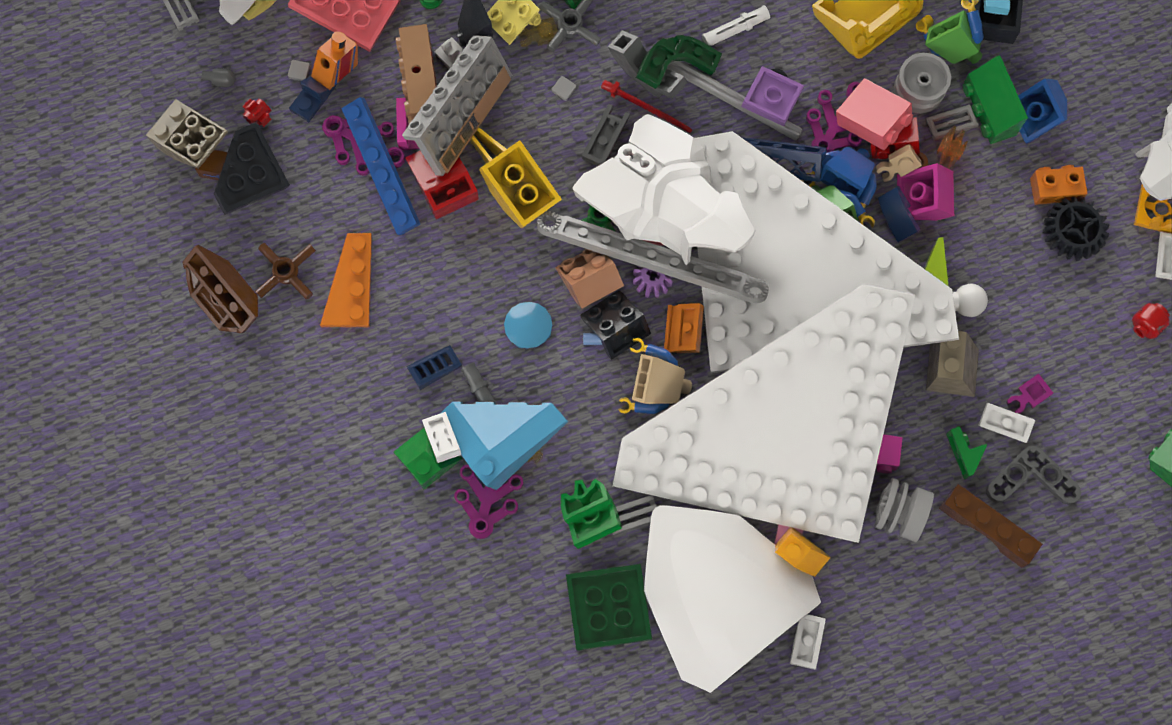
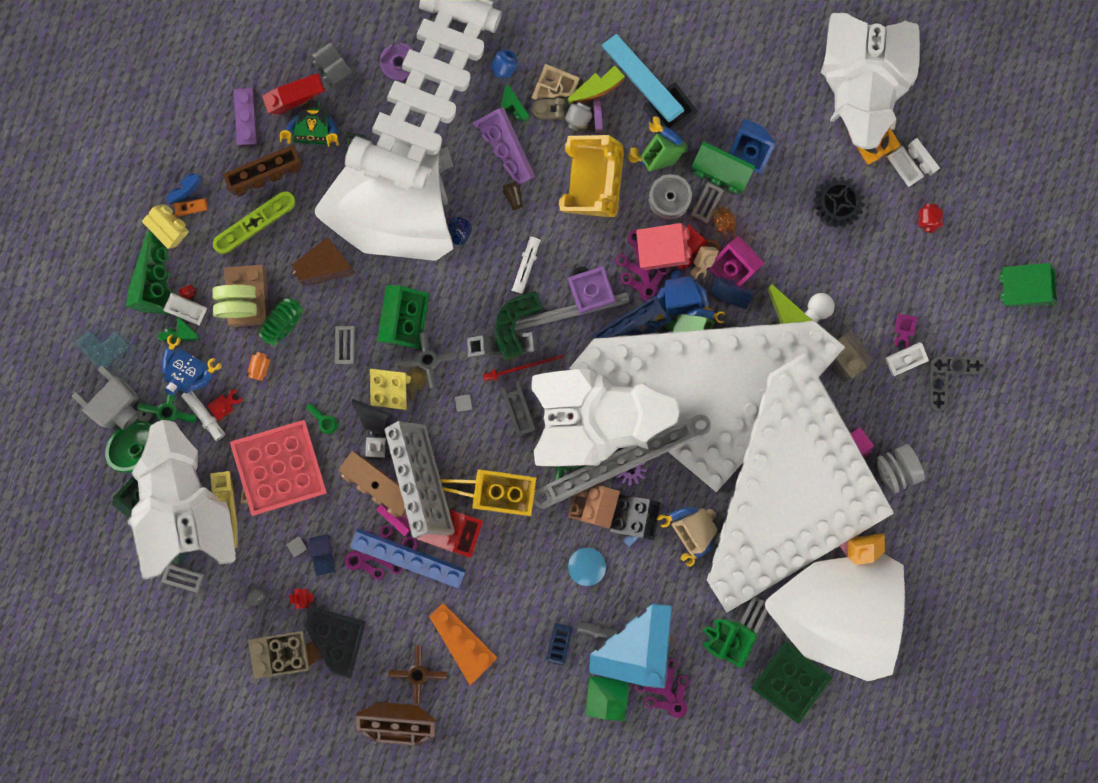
camera: 40 degrees left, 10 degrees up
(335, 60) = (316, 519): orange torso -> none
(441, 437) = (608, 682): white plate -> none
(474, 120) = (436, 477): medium nougat sticker -> none
(684, 328) = (677, 482): orange plate -> none
(807, 641) = (917, 593): white plate -> none
(966, 458) = (905, 402): green slope -> none
(1006, 535) = (953, 429): reddish brown arch -> none
(1057, 184) = (805, 184): orange brick -> none

